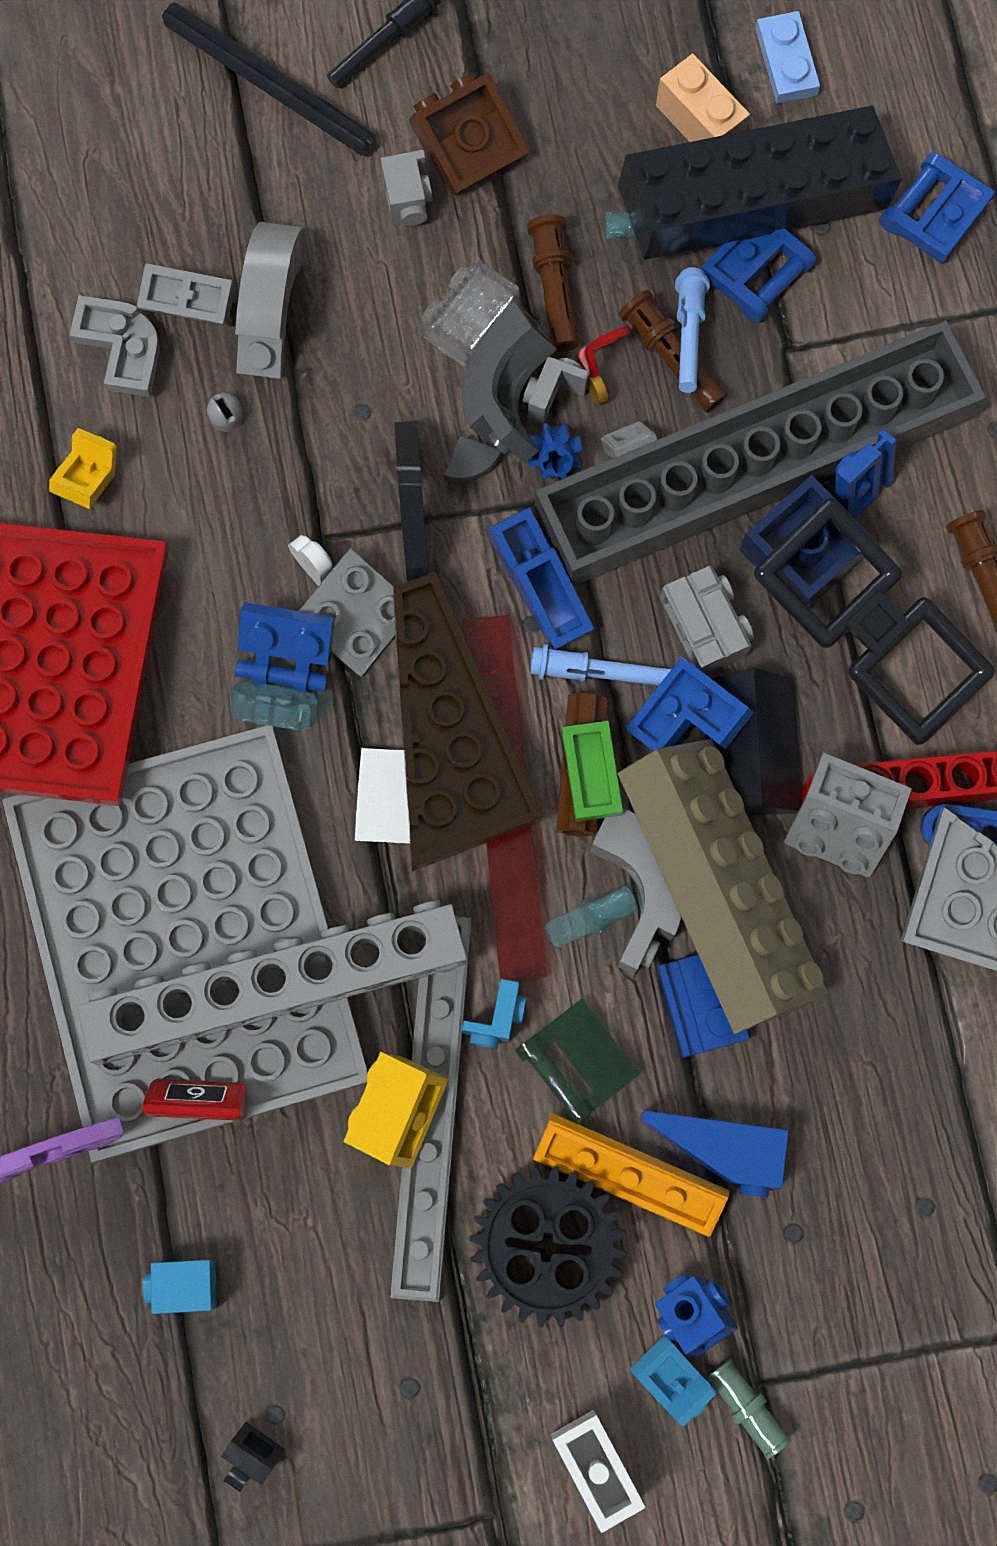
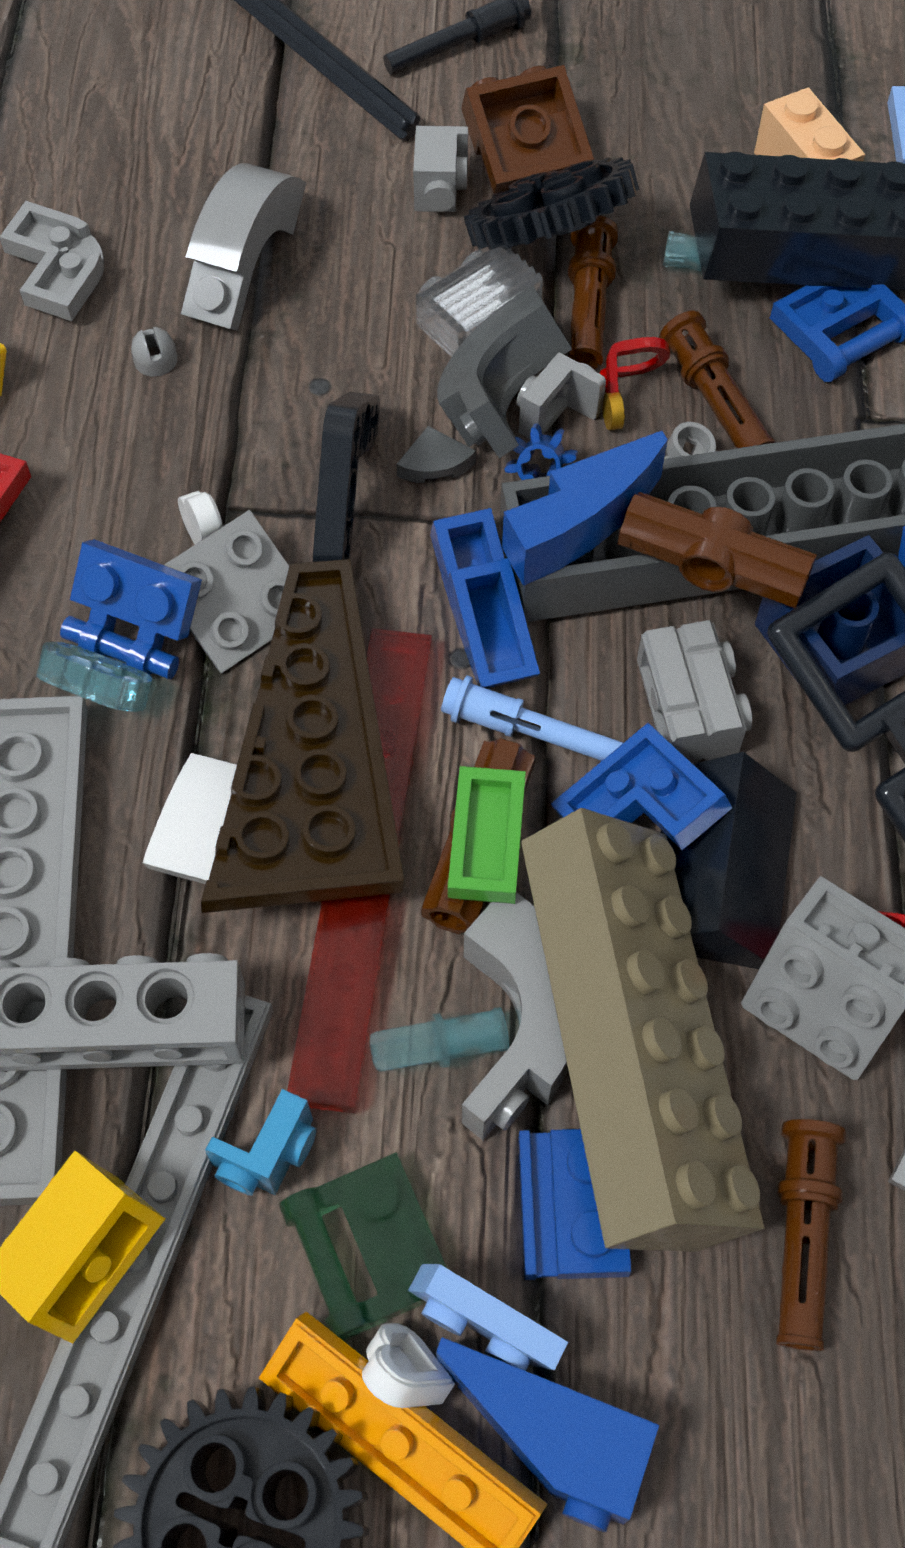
camera: 15 degrees right, 15 degrees down
(187, 294) = (144, 216): light grey hinge -> none
(510, 217) = (551, 203): none -> black gear
(601, 507) = (581, 508): none -> blue slope
(623, 1133) = (404, 1369): none -> white tile
(647, 1088) = (458, 1304): none -> light blue plate
(671, 411) = (693, 433): none -> light grey hinge
(692, 286) = (755, 328): light blue pin -> none
(706, 519) = (716, 549): none -> reddish brown piece
(859, 1045) = (803, 1322): none -> reddish brown pin

